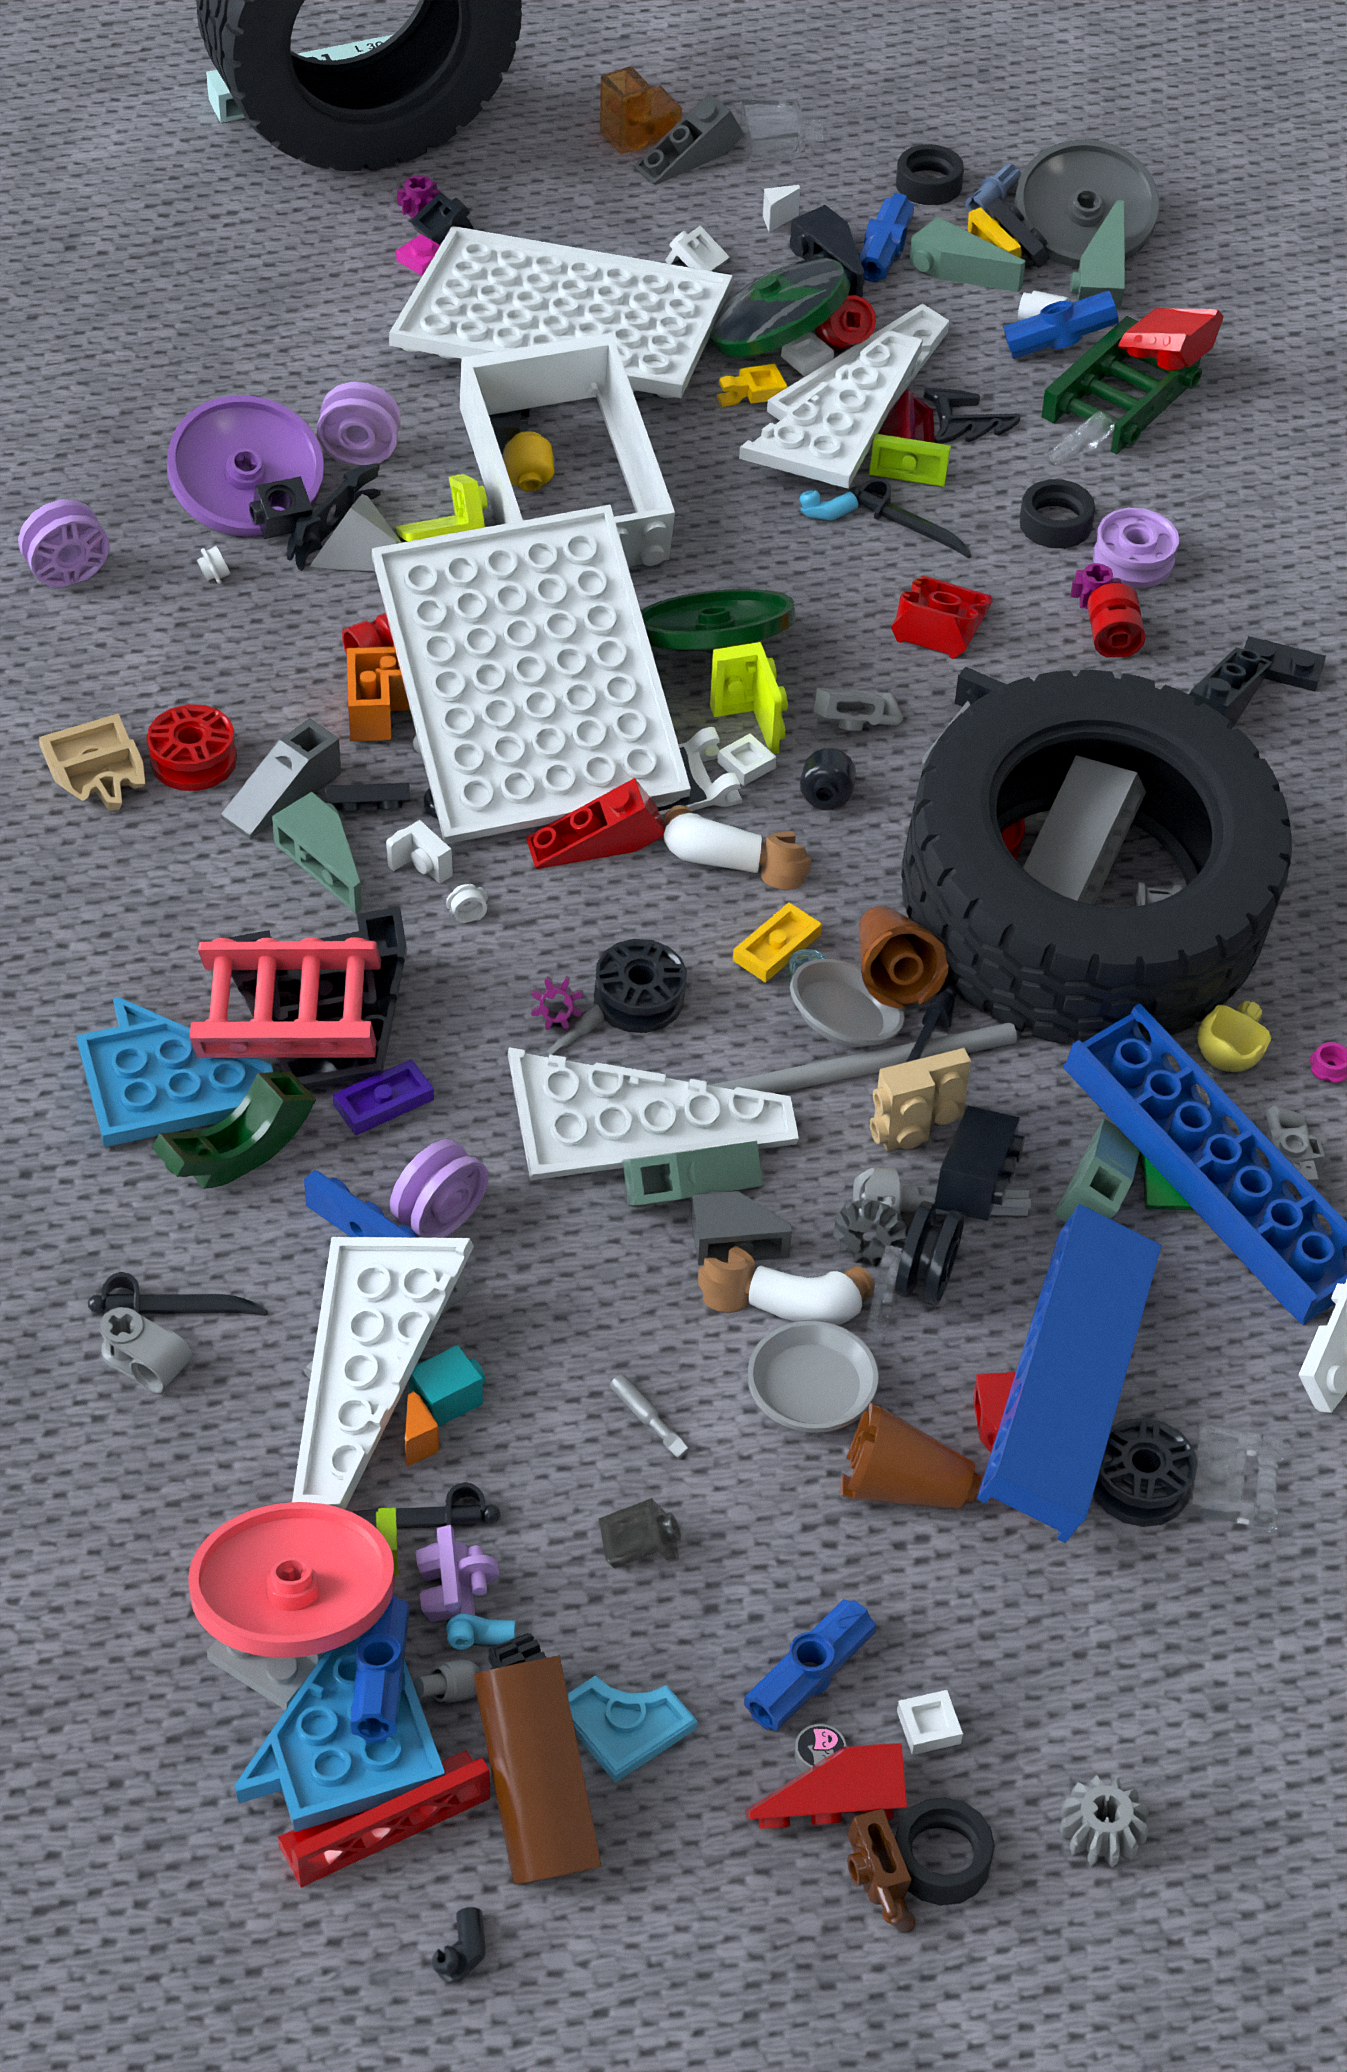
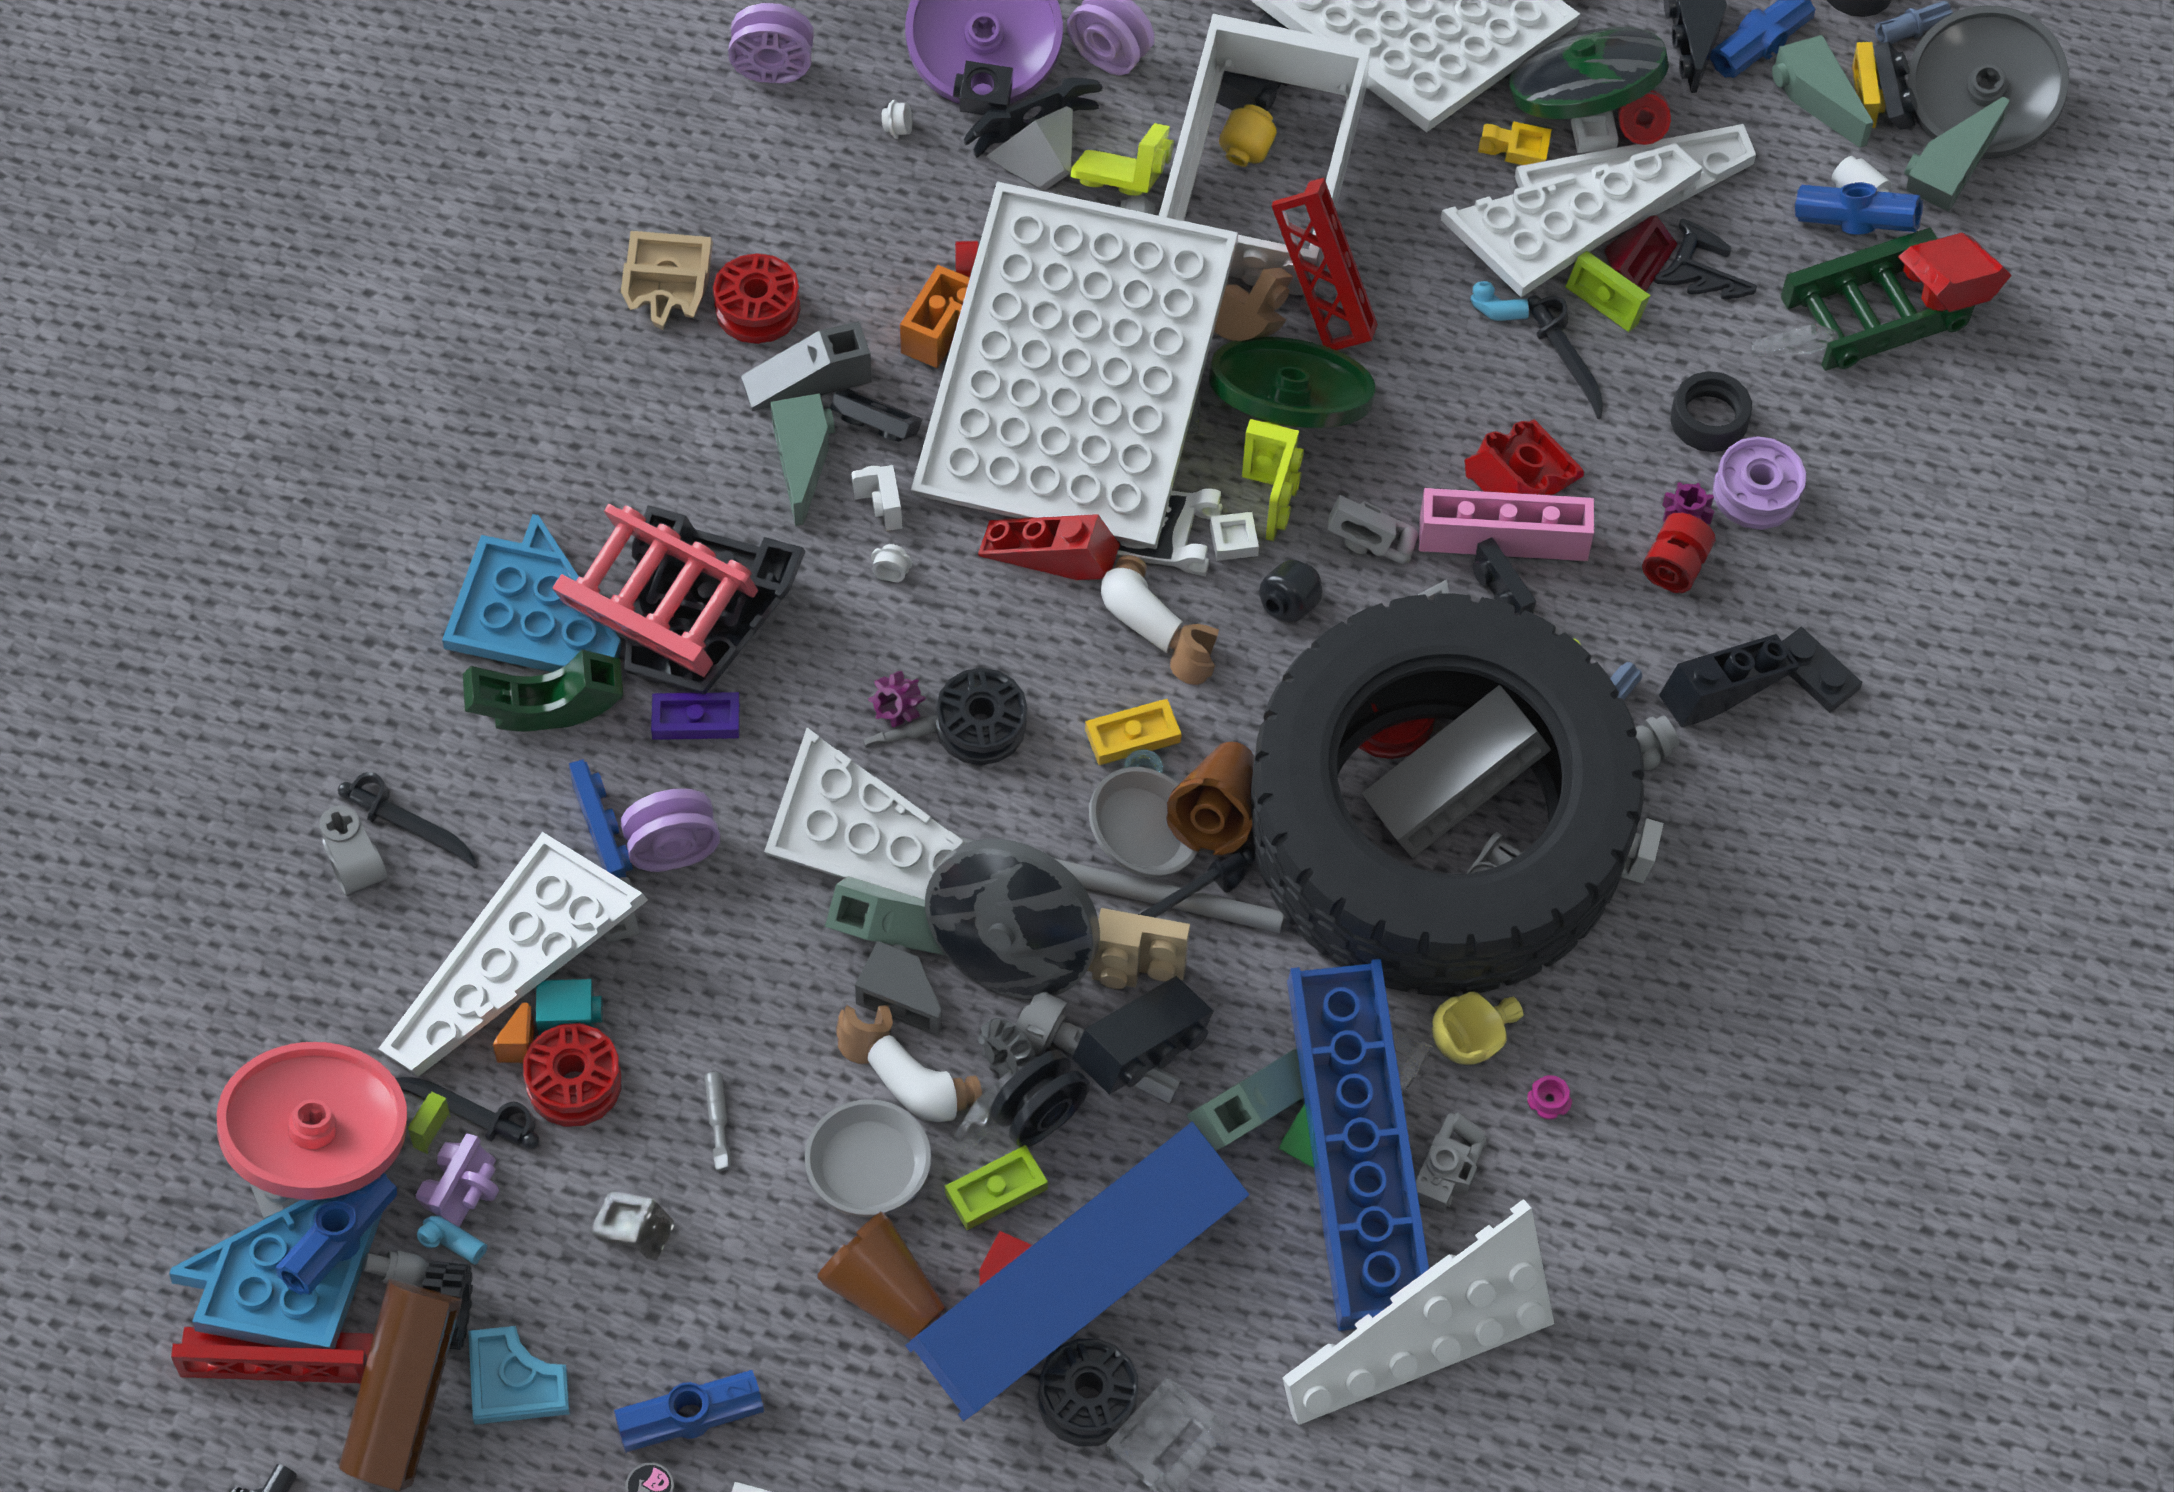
camera: 30 degrees right, 10 degrees up
(489, 1413) = (569, 1050): none -> red wheel
(648, 559) = (1252, 314): none -> medium nougat brick
(690, 506) = (1340, 262): none -> red fence
(809, 1112) = (1012, 918): none -> dish
(937, 1349) = (996, 1187): none -> lime plate
(988, 645) = (1517, 522): none -> bright pink brick

